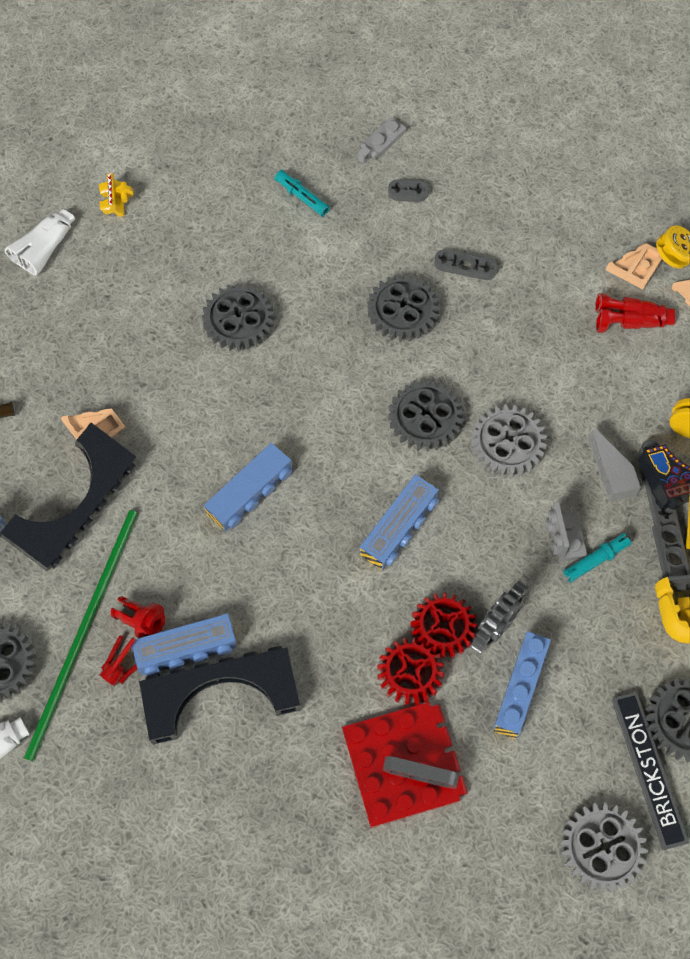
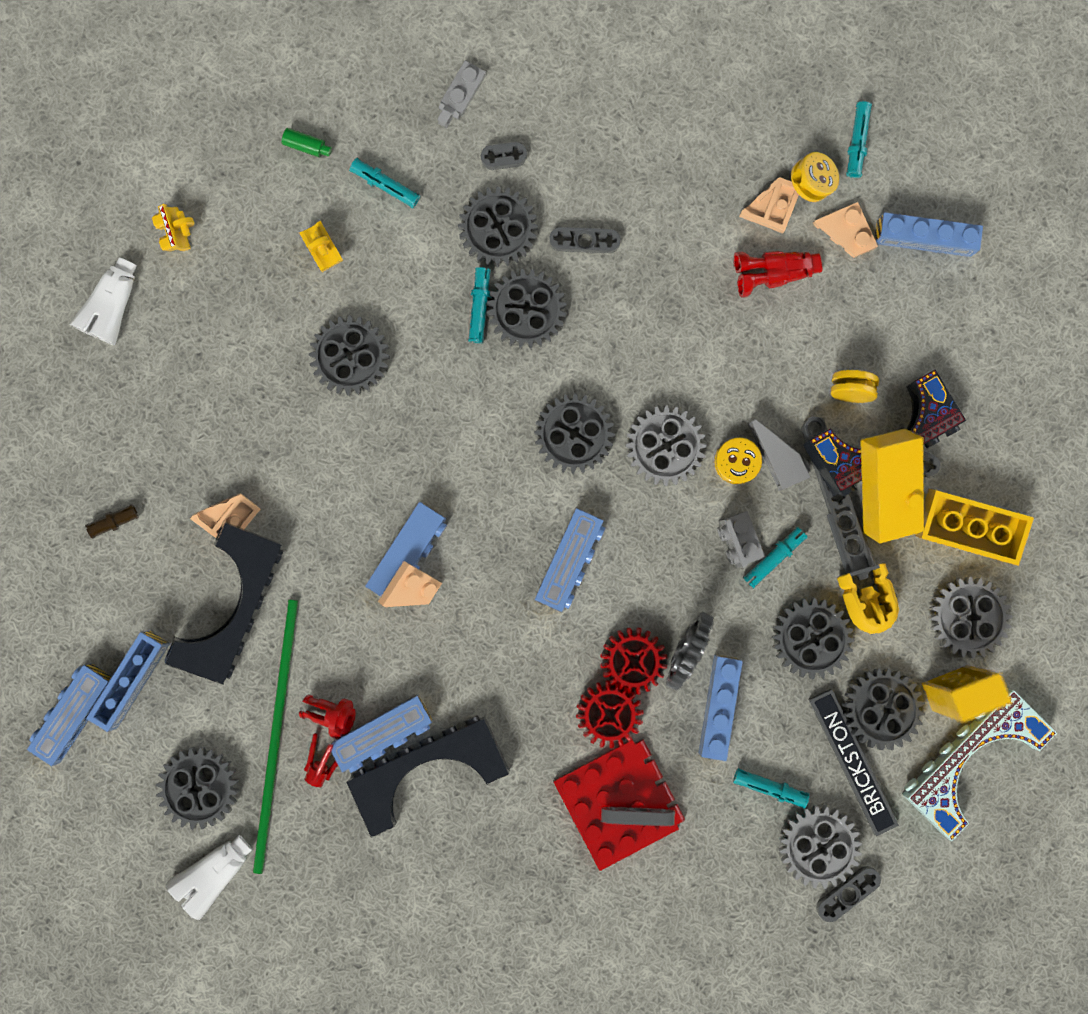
camera: 10 degrees left, 20 degrees up
(236, 229) = (321, 246): none -> yellow hips
(242, 153) = (305, 143): none -> green cylinder
(245, 514) = (409, 588): none -> light nougat wing
(362, 297) = (479, 304): none -> teal pin
(410, 235) = (479, 236): none -> dark grey gear
(562, 778) = (782, 792): none -> teal pin
(574, 465) = (738, 460): none -> yellow head
(632, 658) = (822, 659): none -> dark grey gear
(648, 904) = (859, 896): none -> dark grey beam

